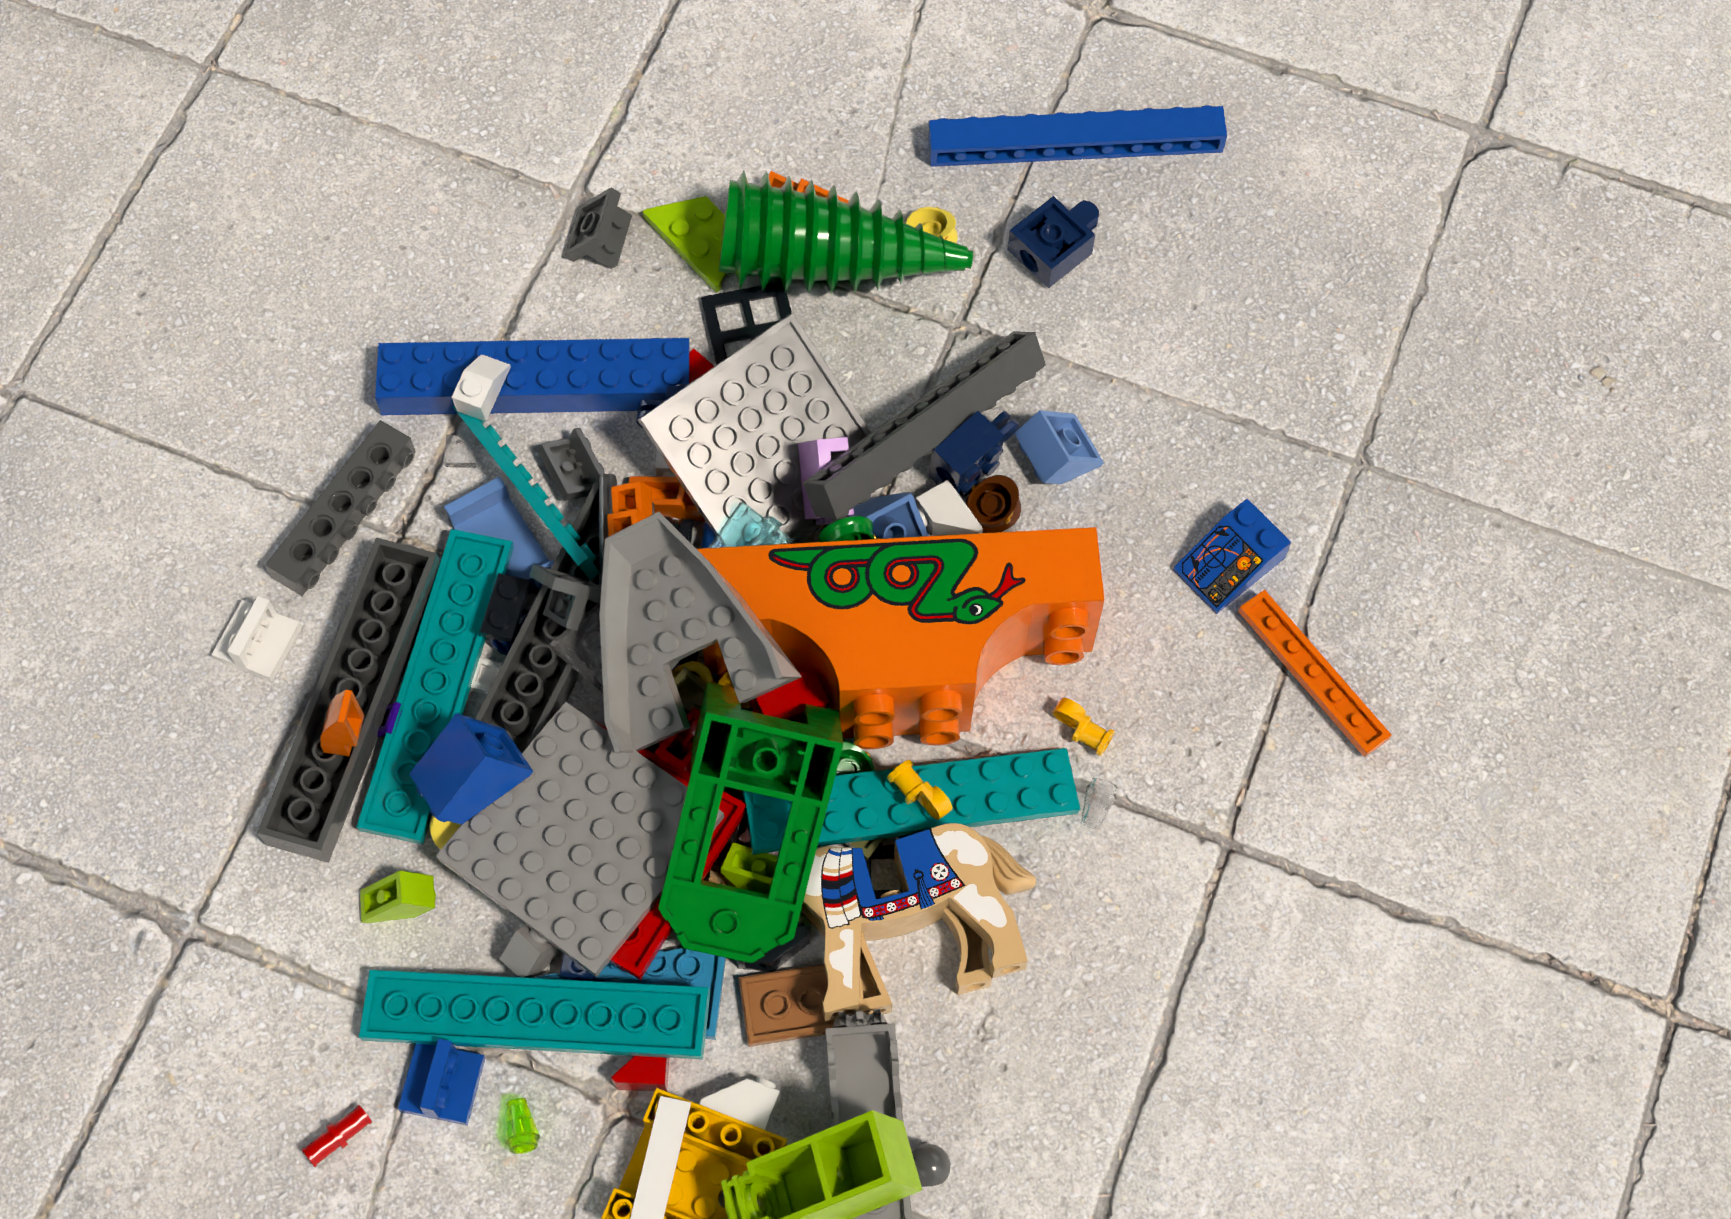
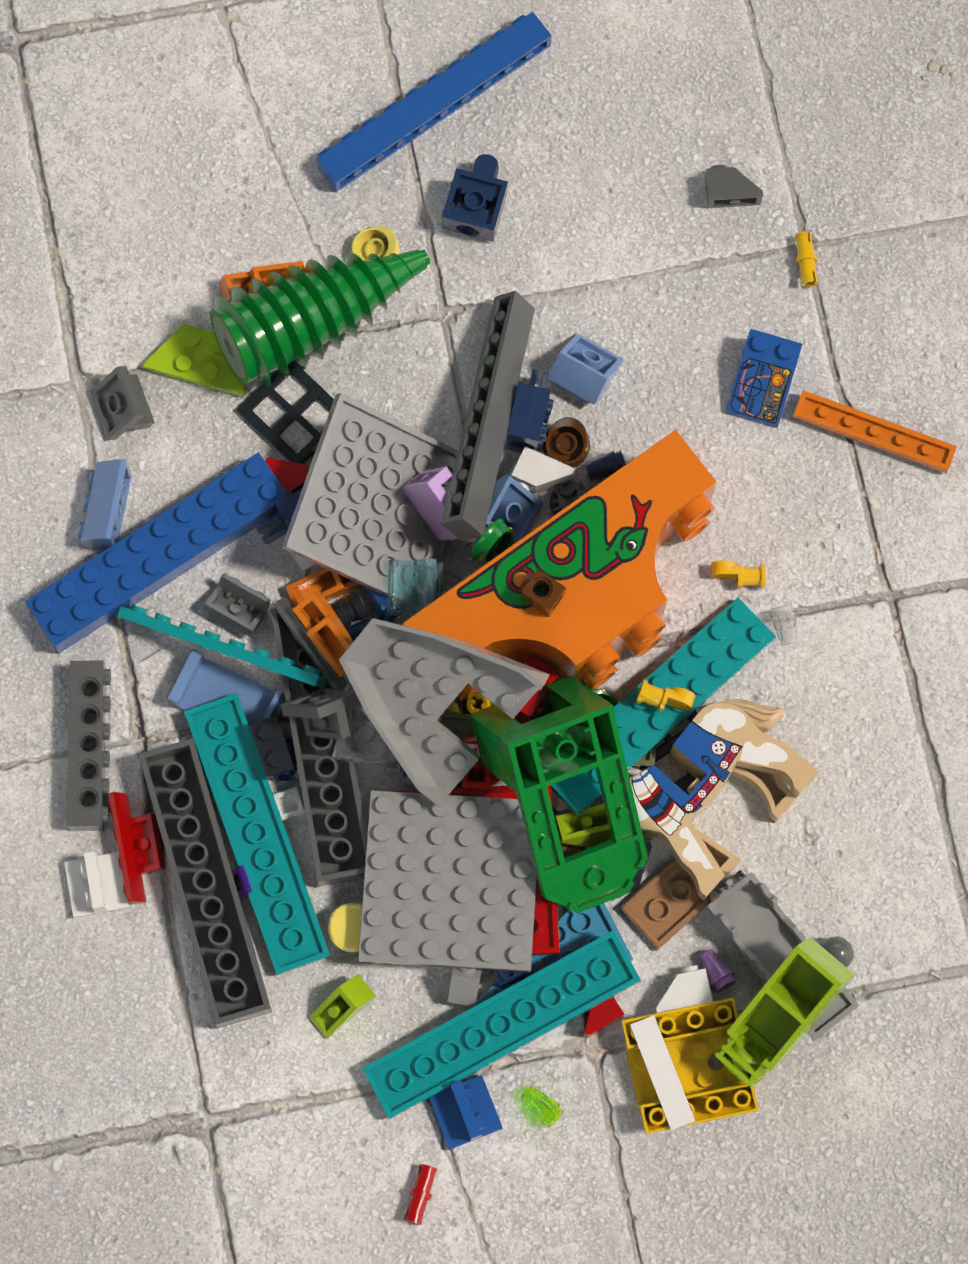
camera: 35 degrees left, 10 degrees up
(313, 625) = (137, 845): none -> red bracket
(342, 724) = (228, 911): orange slope -> none
(468, 769) = (341, 885): blue slope -> none
(480, 387) = (134, 588): white slope -> none
(520, 305) = (105, 505): none -> medium blue slope
(793, 1106) = (718, 972): none -> medium lavender cone
(854, 610) = (543, 604): none -> reddish brown brick
(1314, 366) = (730, 188): none -> dark grey slope
(1349, 473) = (806, 259): none -> yellow pin

